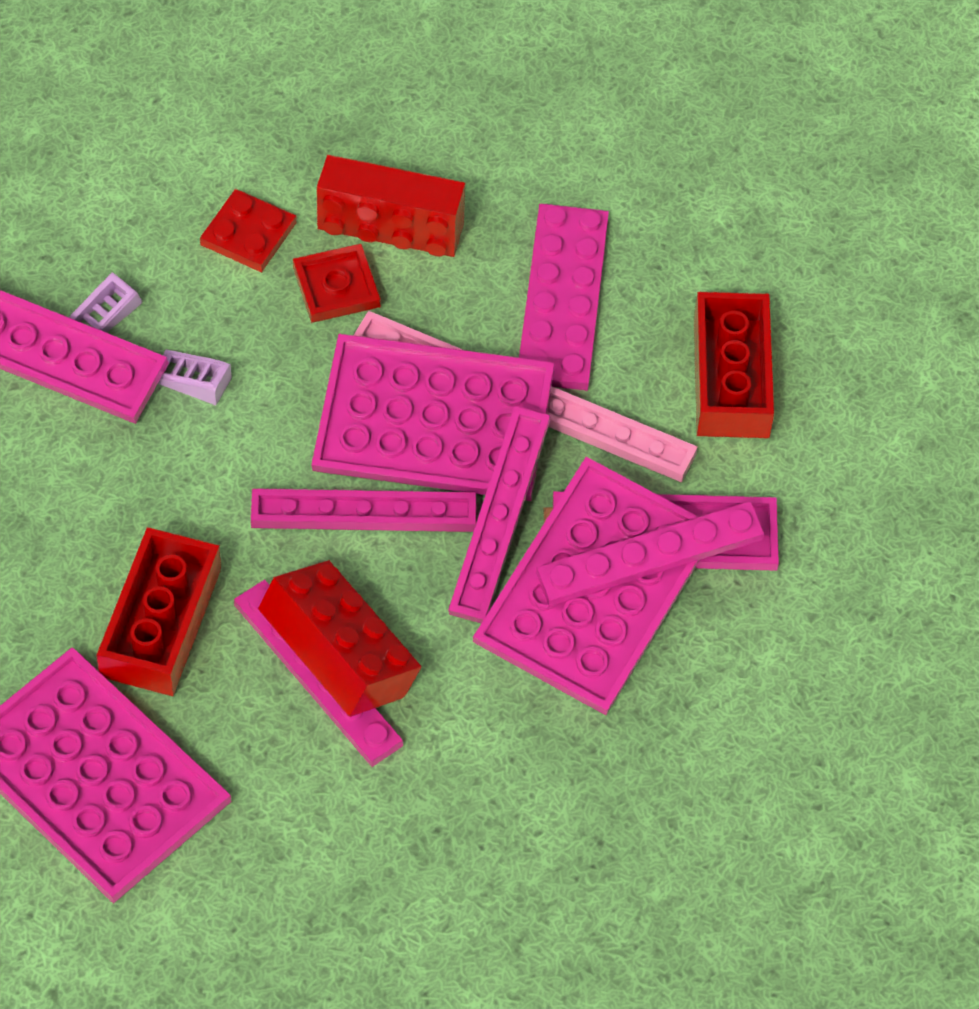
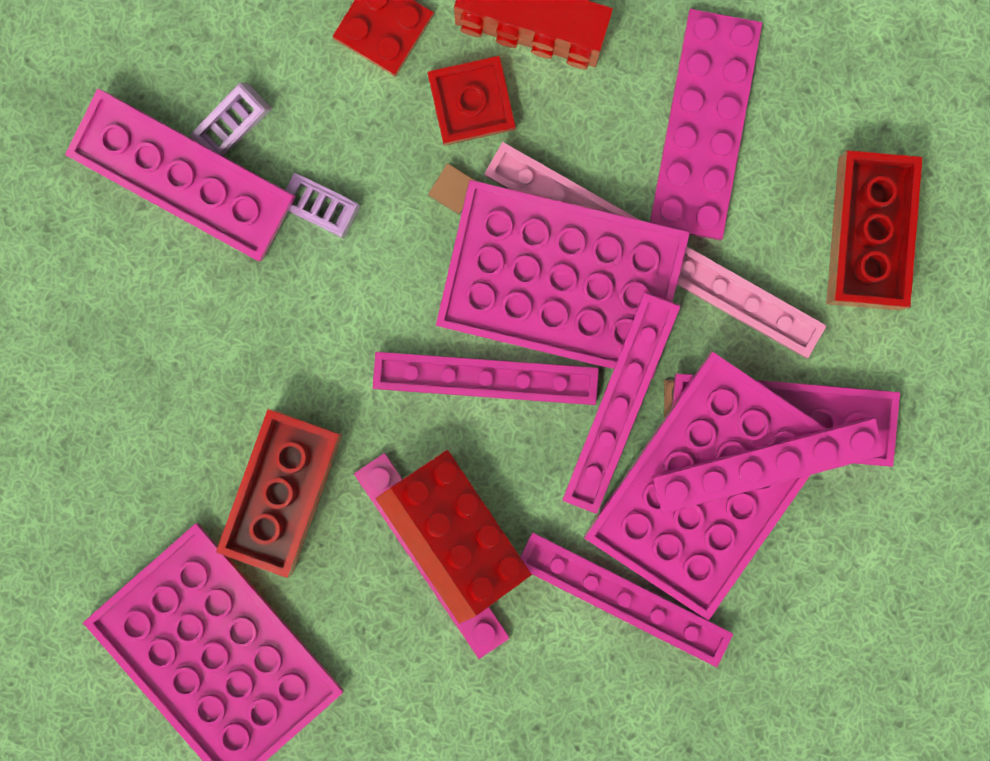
camera: 10 degrees right, 30 degrees up
(318, 356) = (450, 189): none -> medium nougat tile
(522, 699) = (625, 600): none -> dark pink plate

